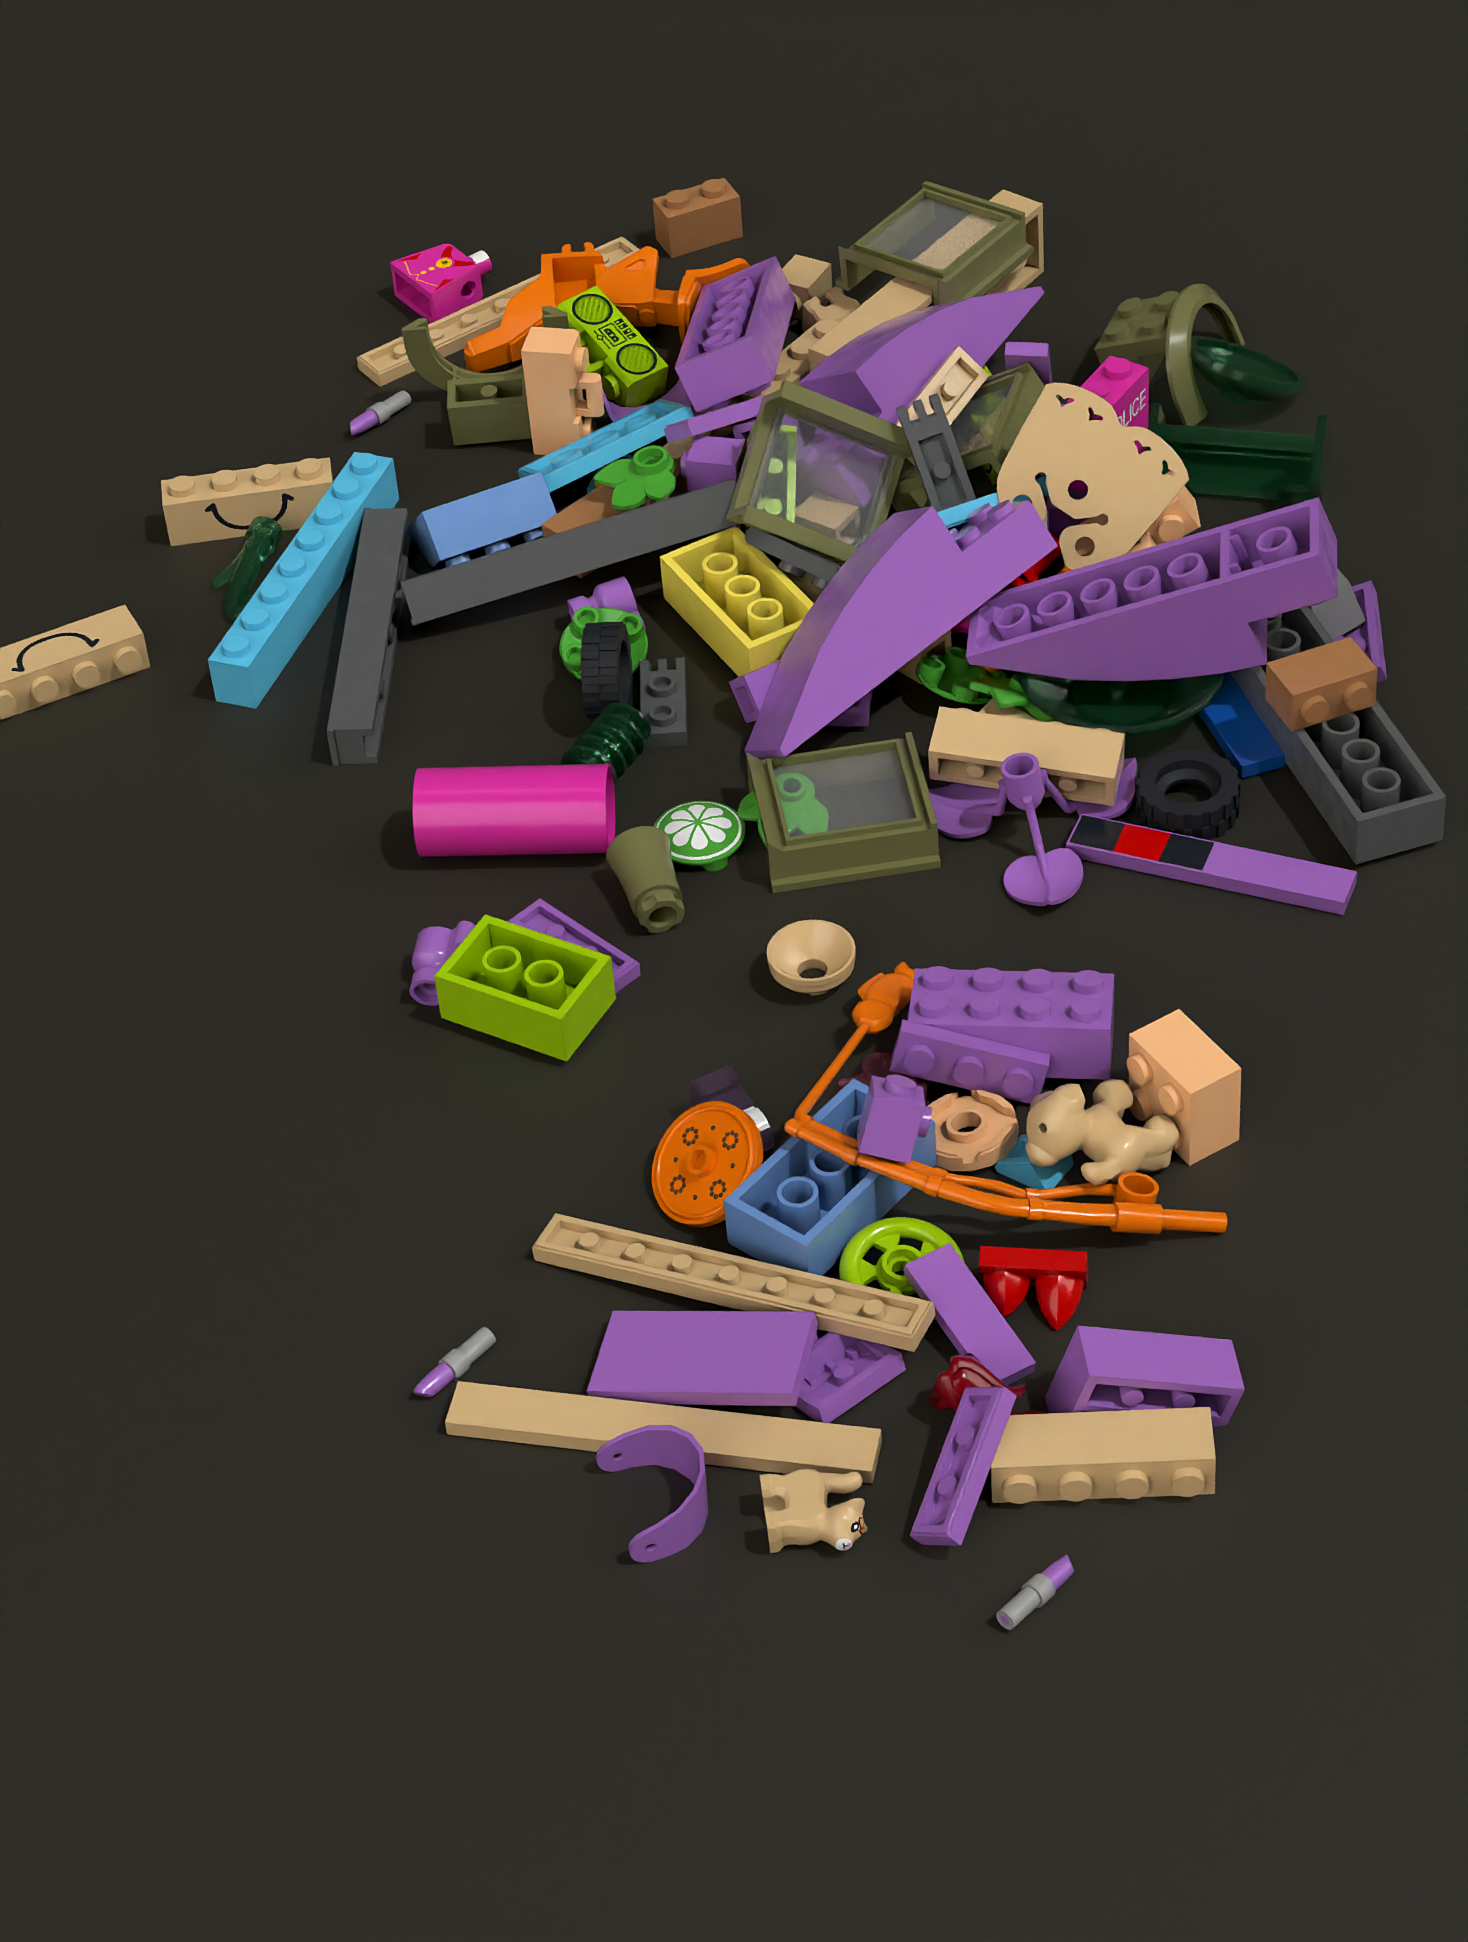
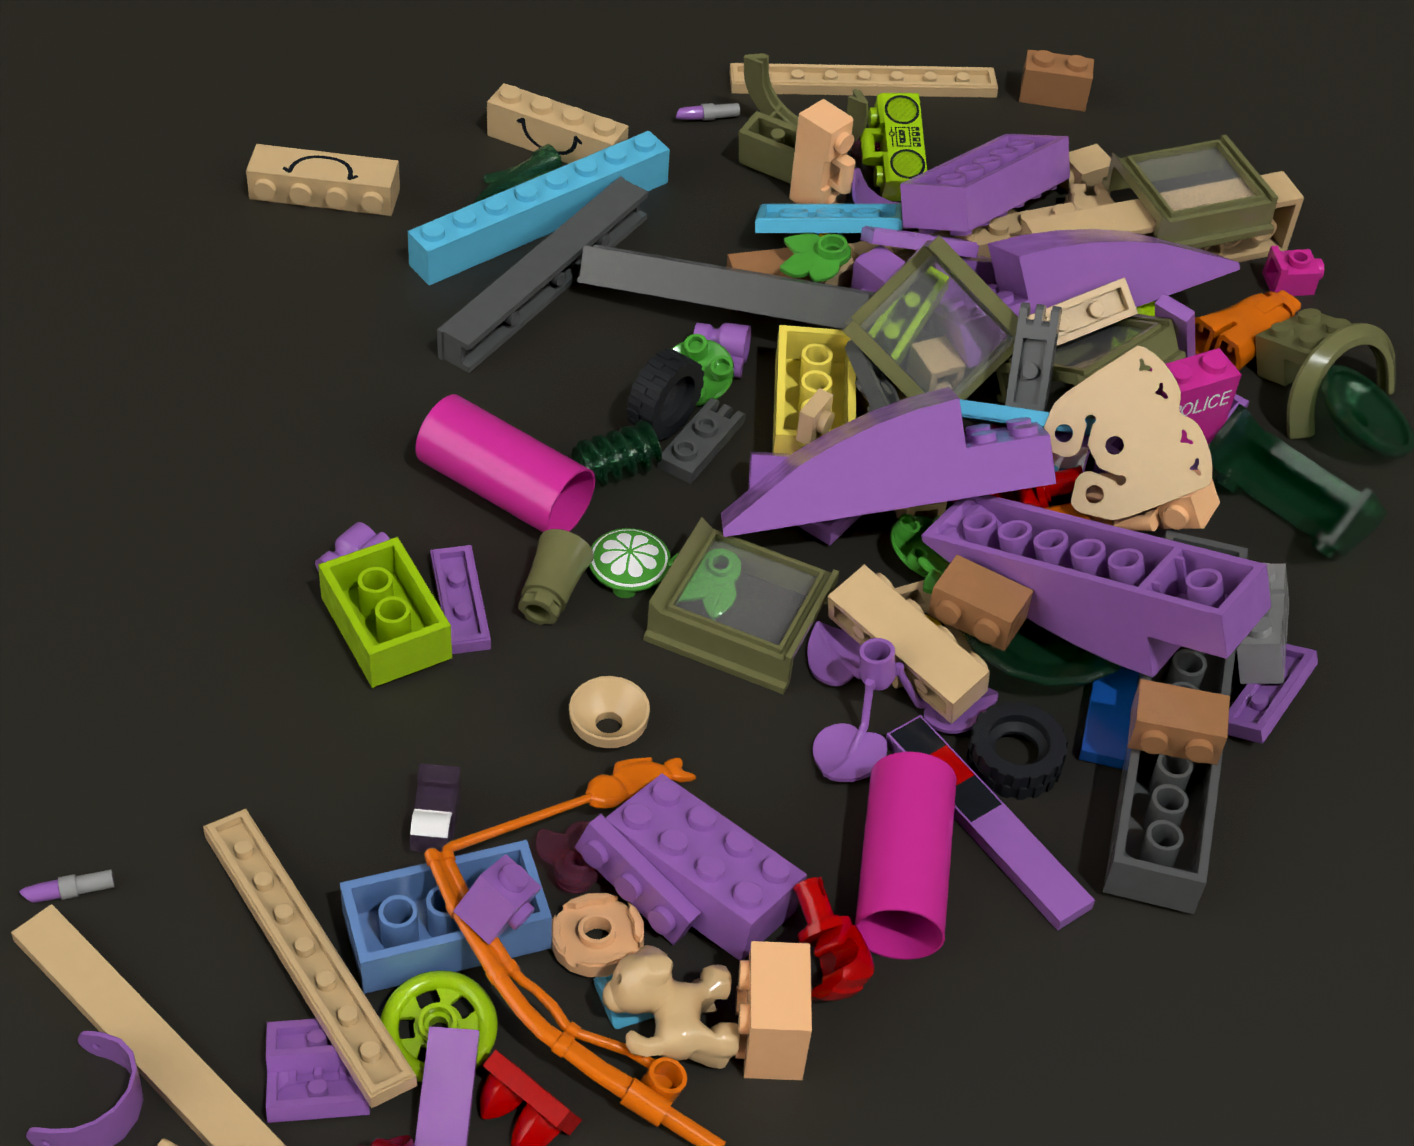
camera: 25 degrees right, 5 degrees up
(440, 280) = (836, 36): dark pink torso -> none
(483, 521) = (695, 230): medium blue slope -> none
(626, 284) = (943, 107): orange piece -> none
(704, 1161) = (374, 836): orange shield -> none
(705, 1357) = (227, 1005): medium lavender tile -> none
(782, 611) = (815, 417): none -> tan plate
(1068, 683) = (980, 602): none -> medium nougat brick
(1070, 283) = (1293, 271): none -> dark pink brick
(1073, 343) = (1236, 326): none -> orange piece
(1179, 917) = (906, 856): none -> dark pink piece
(1204, 1010) = (837, 942): none -> red piece

